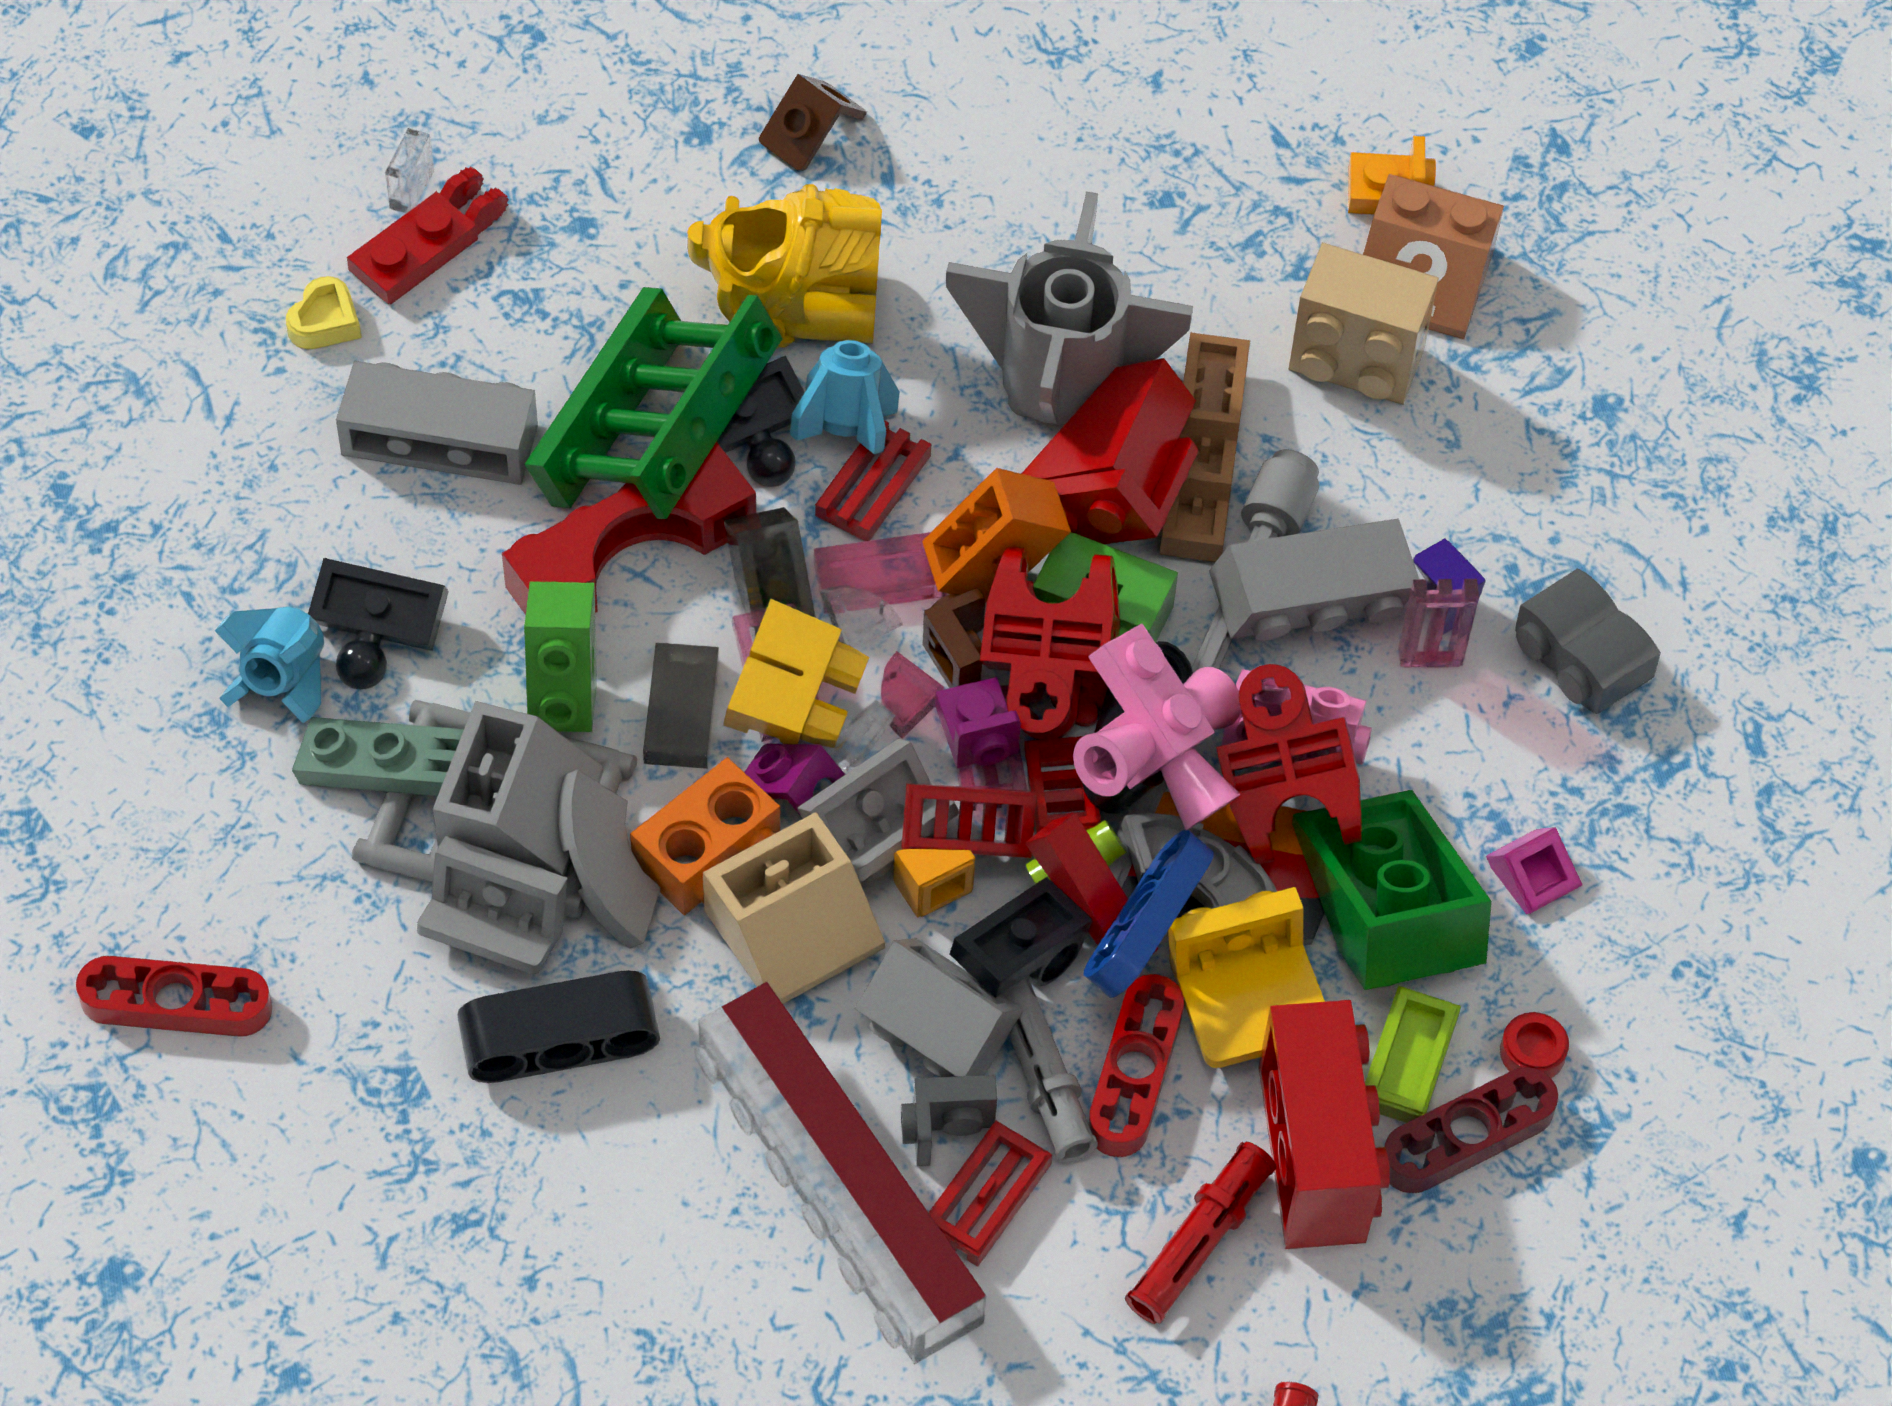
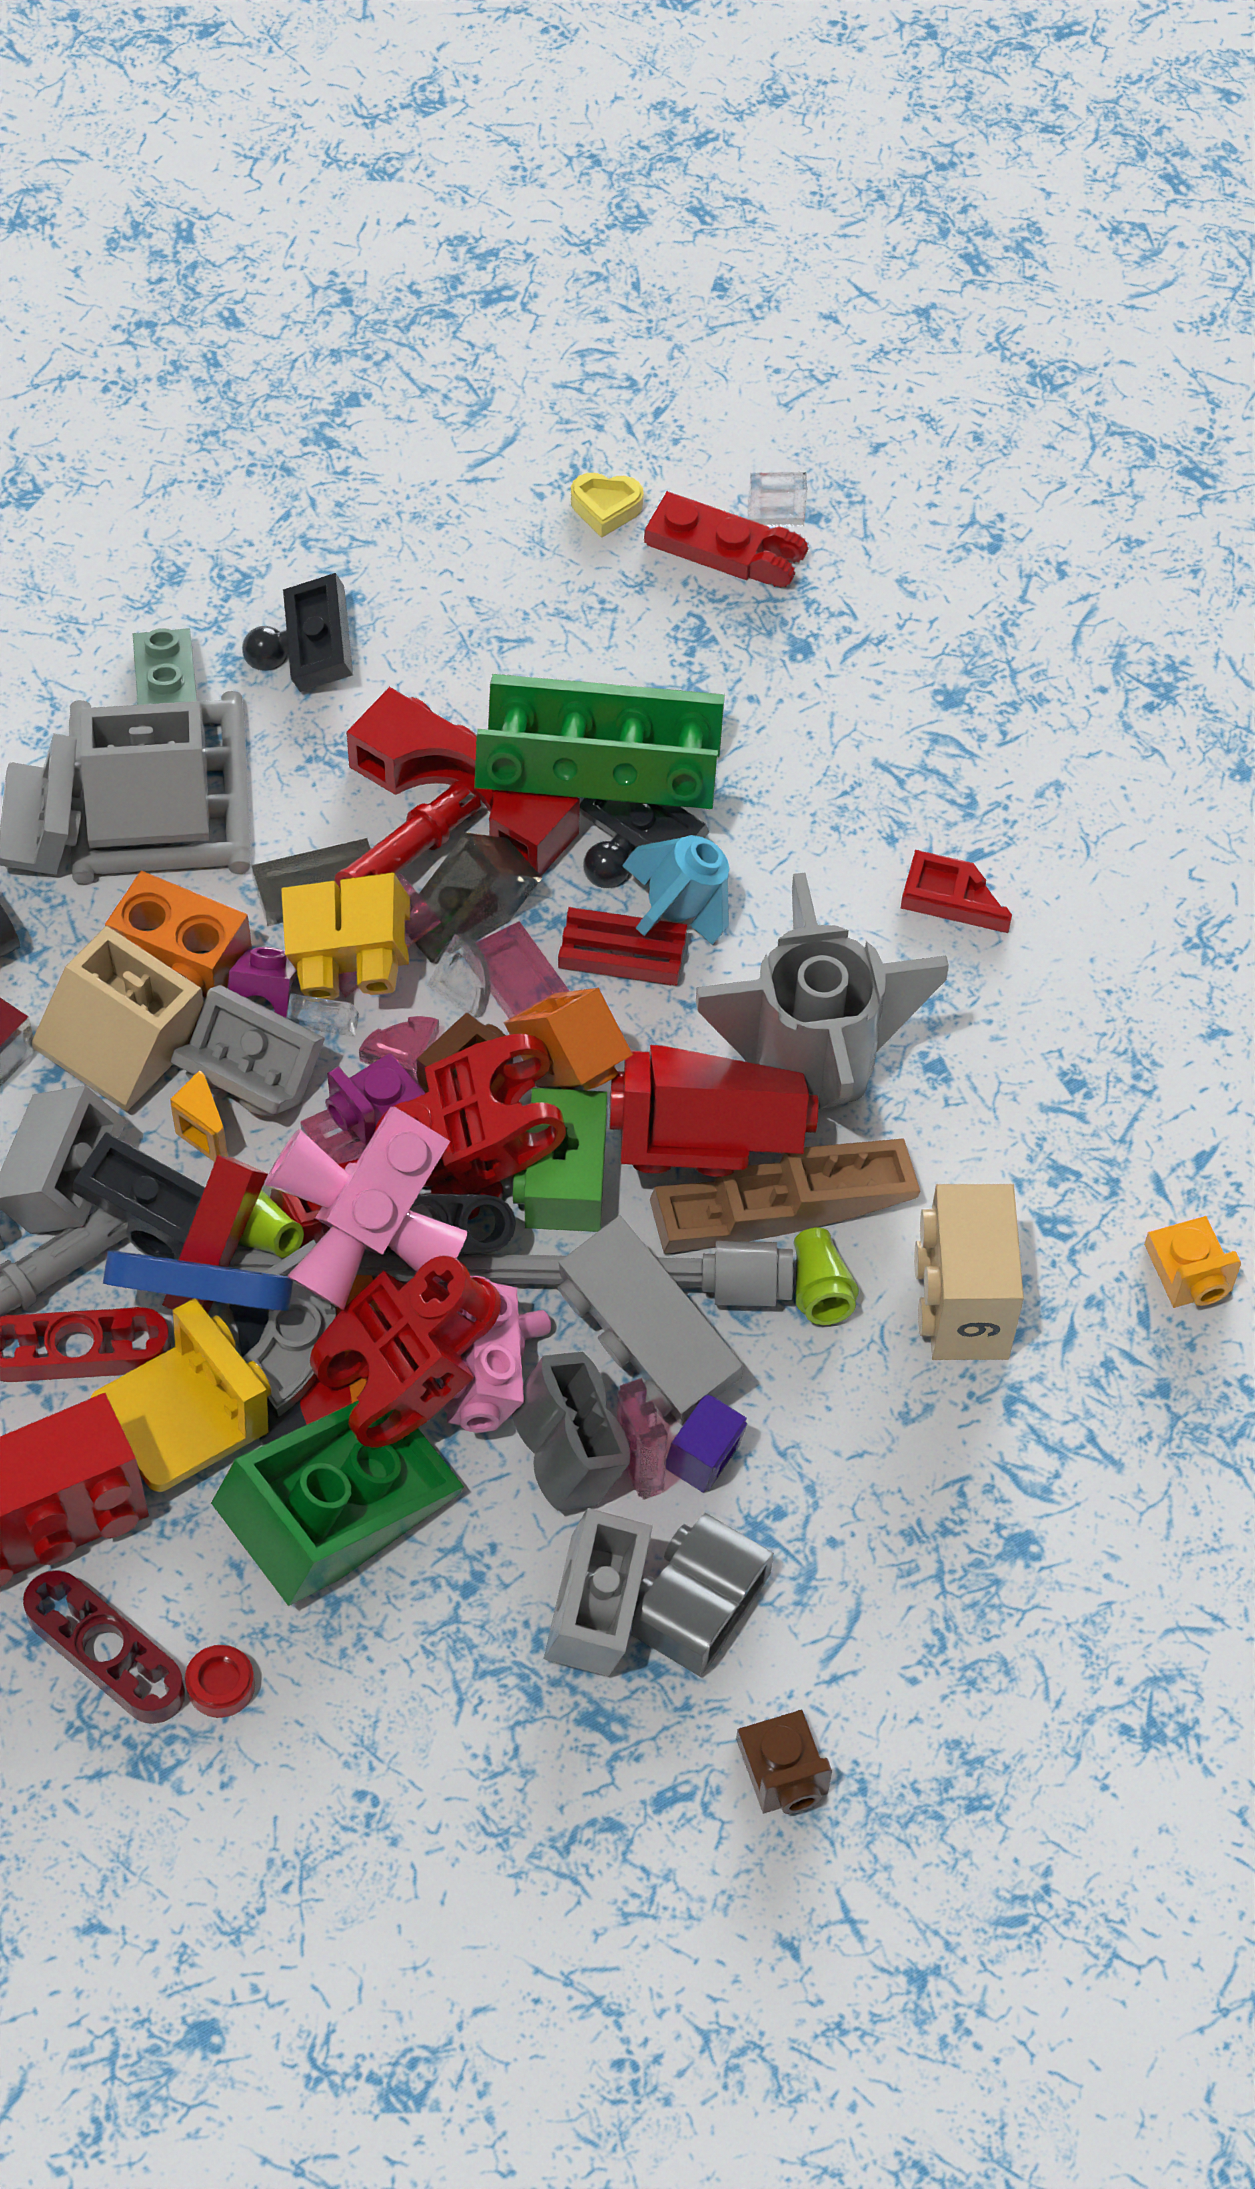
camera: 70 degrees right, 0 degrees up
(276, 657) = (232, 579): medium azure brick -> none
(437, 422) = (523, 603): light grey brick -> none
(561, 654) = (294, 759): bright green brick -> none
(597, 840) = (112, 862): light grey tile -> none
(673, 588) = (425, 828): none -> red pin
(799, 260) = (796, 793): yellow helmet -> none
(805, 120) = (1005, 757): reddish brown bracket -> none
(926, 208) = (952, 892): none -> red tile
(1018, 826) = (233, 1109): red slope -> none
(1314, 438) = (823, 1281): none -> lime cone
(1407, 676) = (571, 1431): none -> dark grey brick
(1411, 1053) = (170, 1573): lime tile -> none
(1438, 236) = (1106, 1318): nougat slope -> none
(1535, 869) = (423, 1626): dark pink slope -> none
(1570, 709) = (598, 1592): none -> light grey brick
(1761, 641) = (784, 1763): none -> reddish brown bracket

